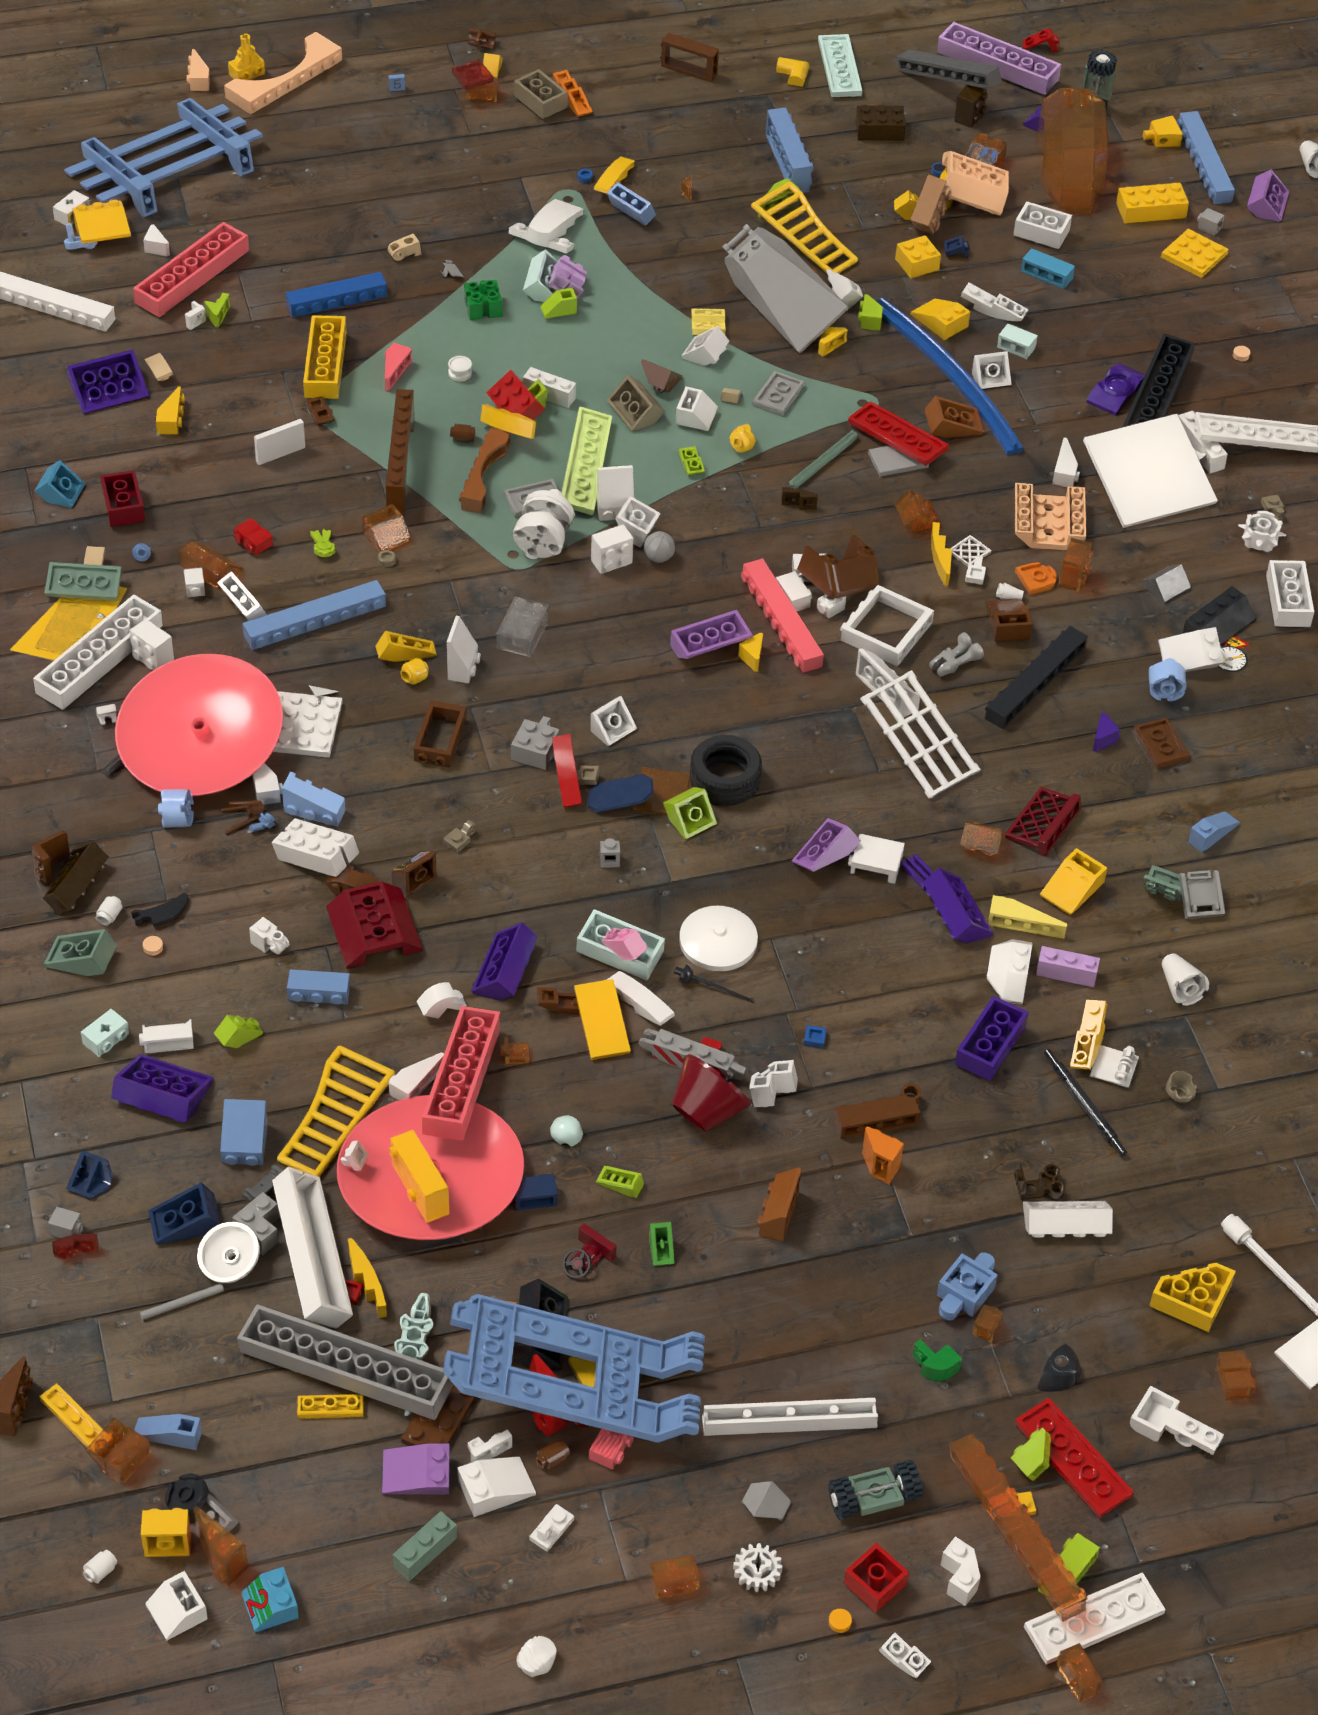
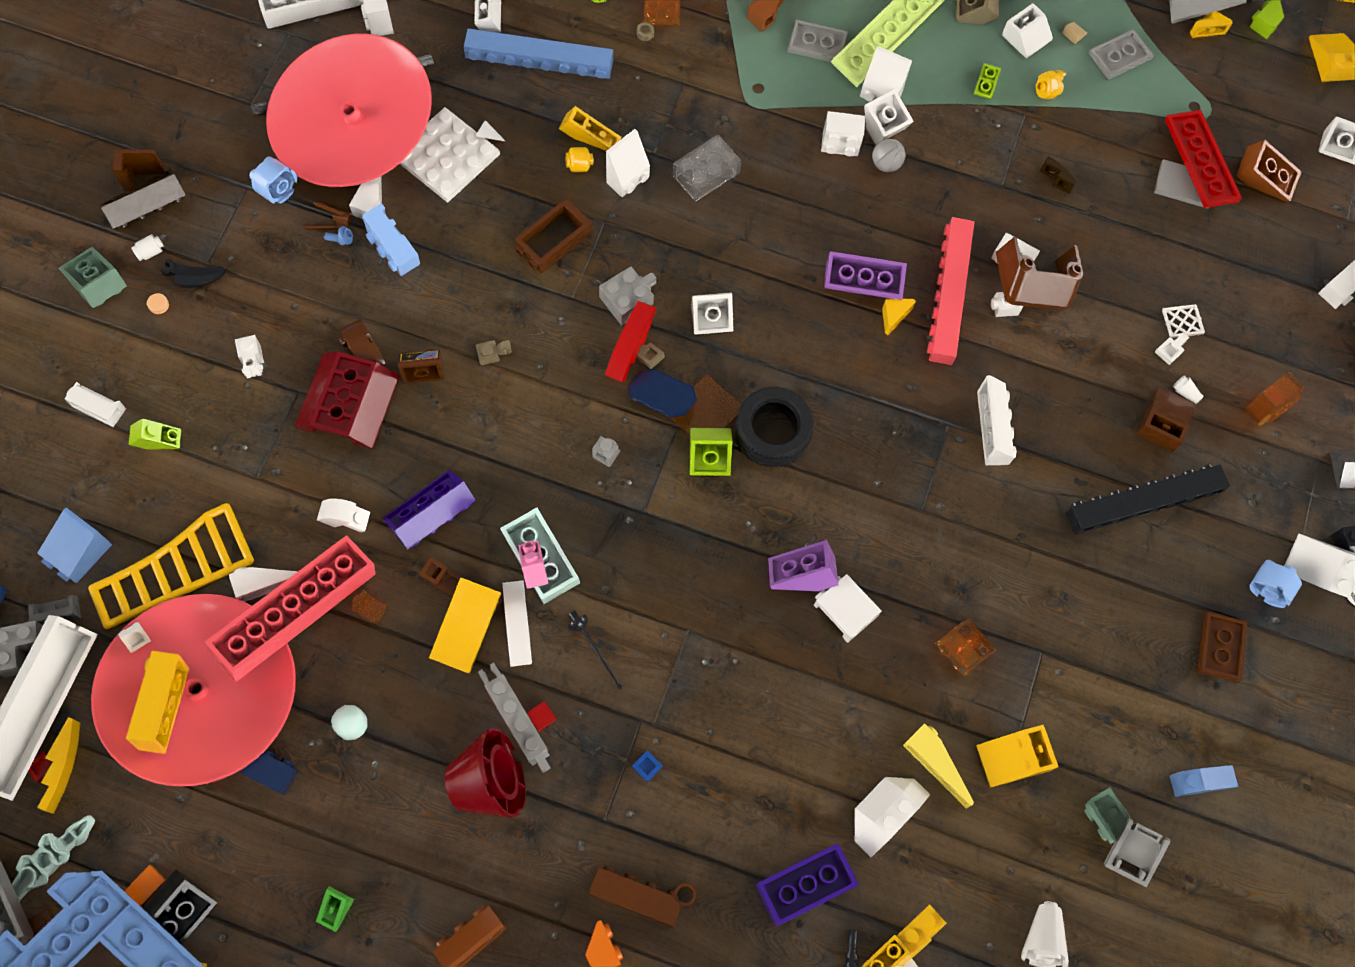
camera: 30 degrees right, 20 degrees up
(105, 1032) = (49, 368): light aqua brick -> none
(106, 711) = (292, 51): white tile -> none
(161, 1087) = (51, 451): dark purple slope -> none
(315, 847) = (352, 290): white piece -> none
(318, 986) = (253, 433): medium blue brick -> none
(543, 524) = (801, 72): white wheel -> none
(595, 1248) = (265, 870): dark red piece -> none
(630, 1188) = (361, 821): lime slope -> none
(718, 938) = (639, 601): white dish -> none
(778, 1078) = (571, 794): white brick -> none
(795, 590) = (980, 271): white piece -> none
(823, 459) = (1112, 146): sand green axle -> none
(881, 649) = (1015, 377): white window -> none
(916, 512) = (1160, 253): clear orange slope -> none
(921, 868) = (878, 629): dark purple tile -> none
(923, 753) = (993, 520): white door -> none
(940, 554) = (1150, 311): yellow slope -> none
(946, 661) = (1075, 425): light grey piece -> none
(957, 375) = (1307, 126): blue piece -> none
(957, 907) = (884, 711): dark purple slope -> none
(1036, 577) = (1228, 387): orange tile -> none
(1056, 824) = (1045, 680): dark red fence -> none
(1064, 521) = (1299, 342): light nougat slope -> none
(1067, 966) = (942, 849): lavender brick -> none
(1106, 734) = (1172, 604): dark purple slope -> none

